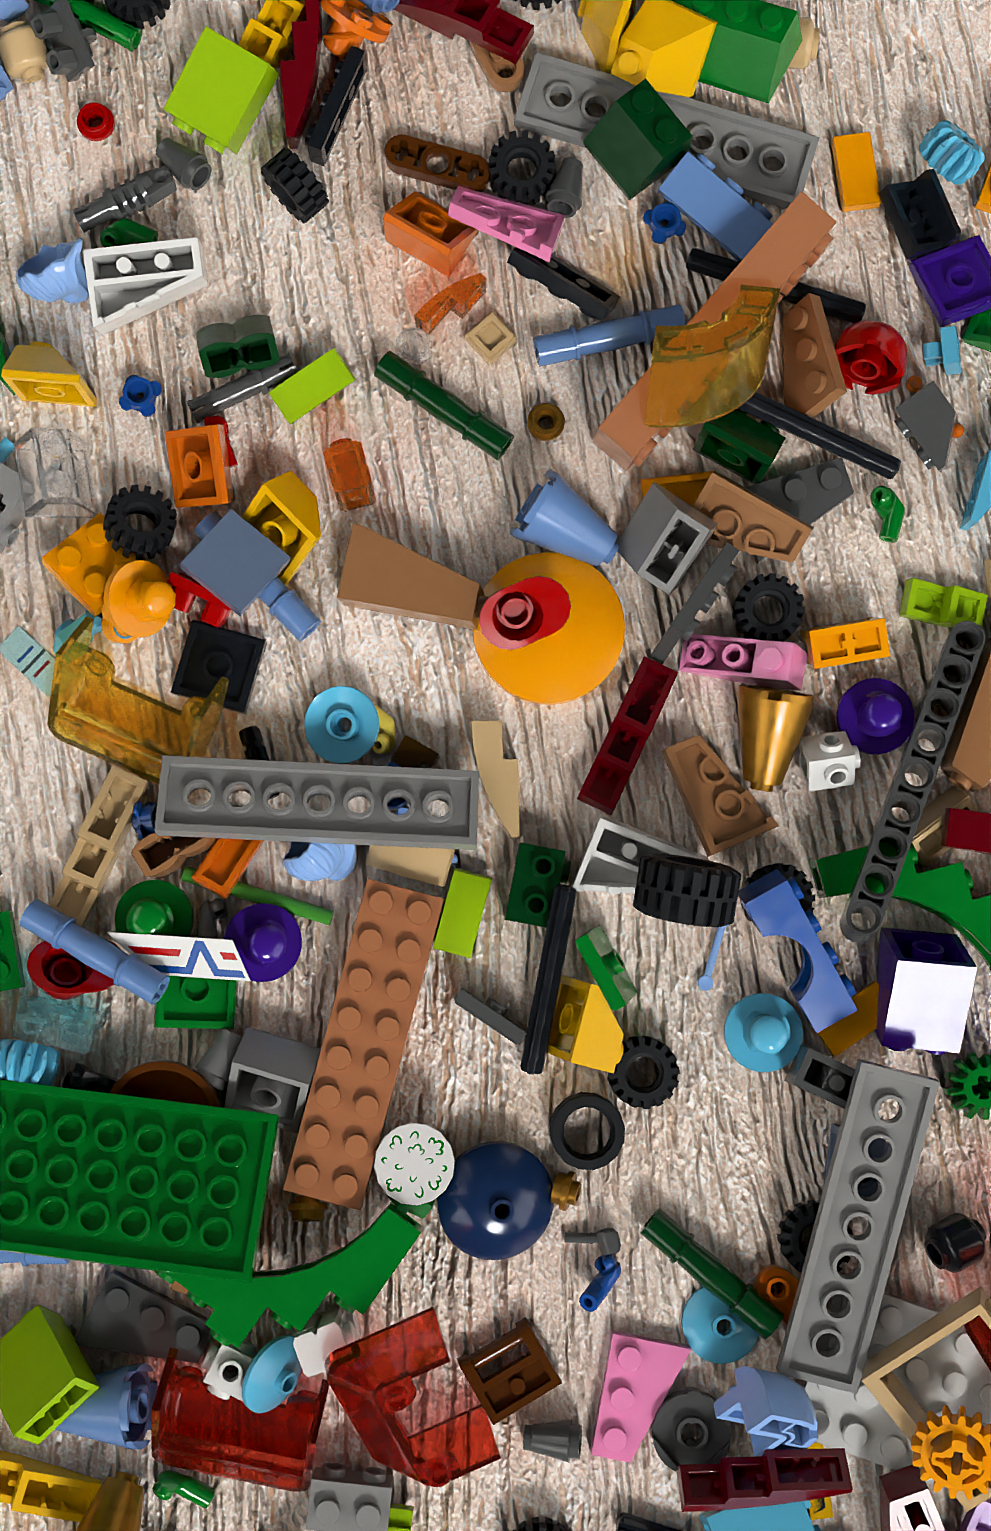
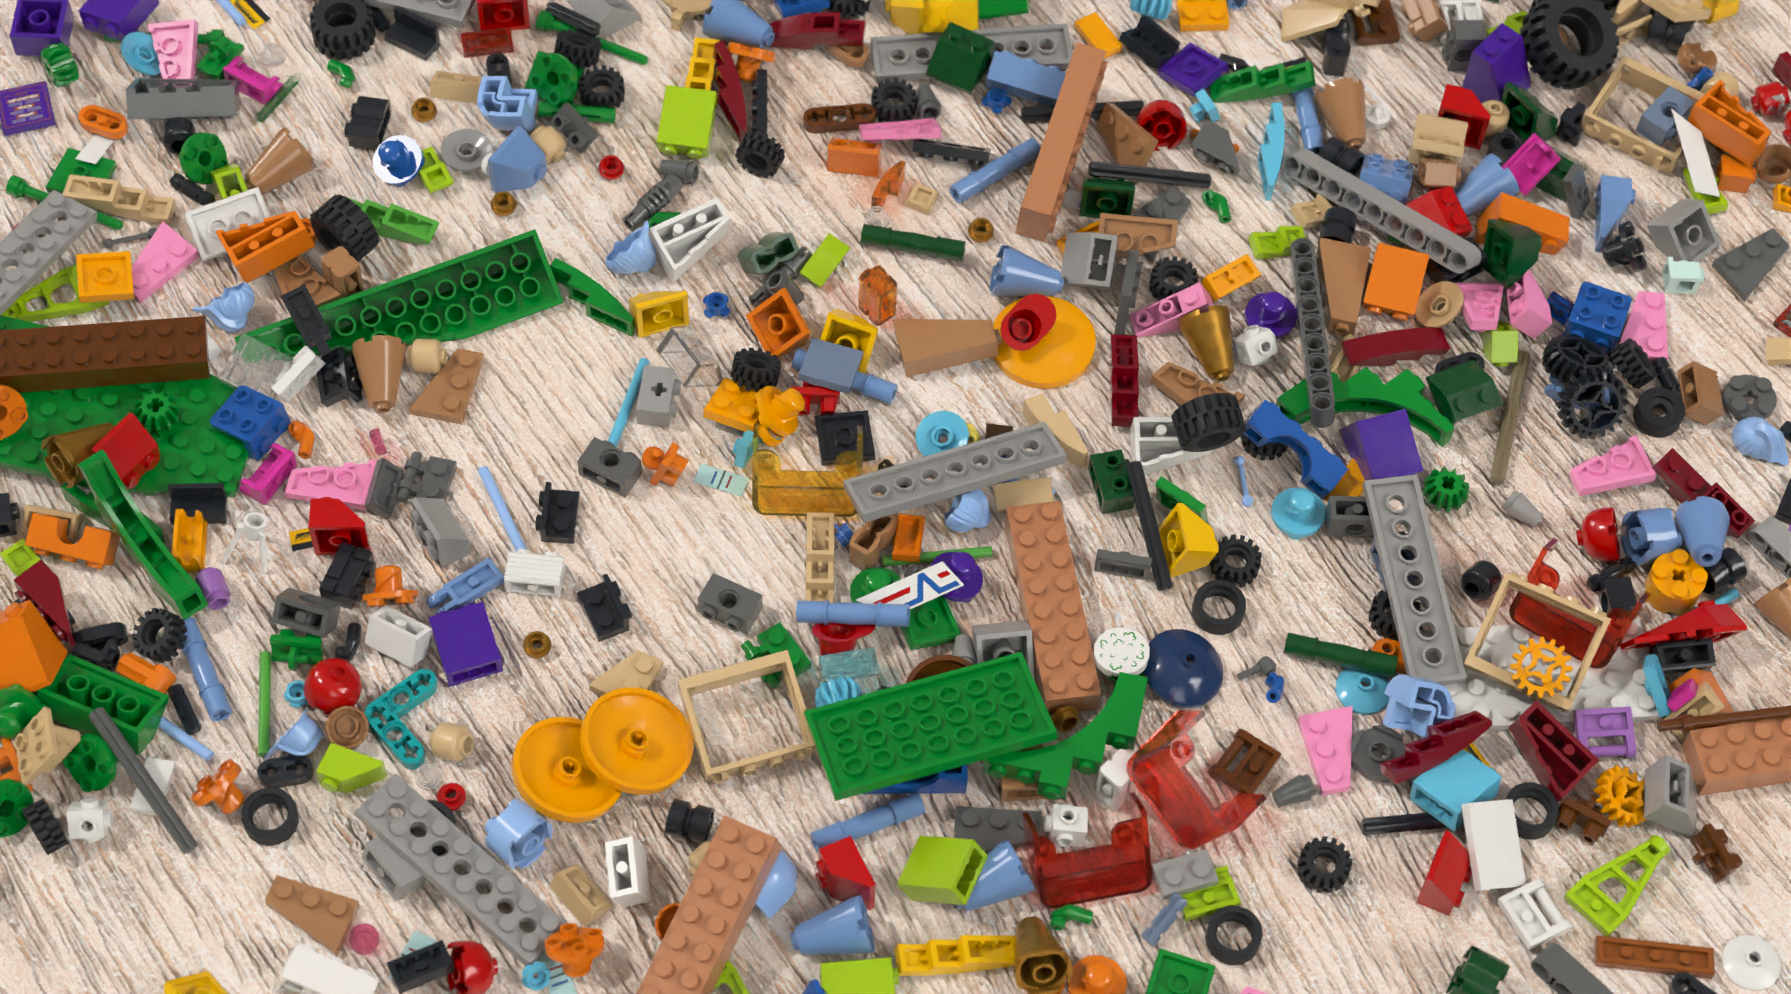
camera: 20 degrees left, 25 degrees down
(233, 410) = (782, 280): none -> dark grey cone
(271, 1375) = (1095, 815): medium azure dish -> none
(462, 912) = (1075, 514): lime slope -> none
(565, 1190) = (1224, 645): pearl gold plate -> none
(711, 368) = (1071, 147): clear yellow panel -> none

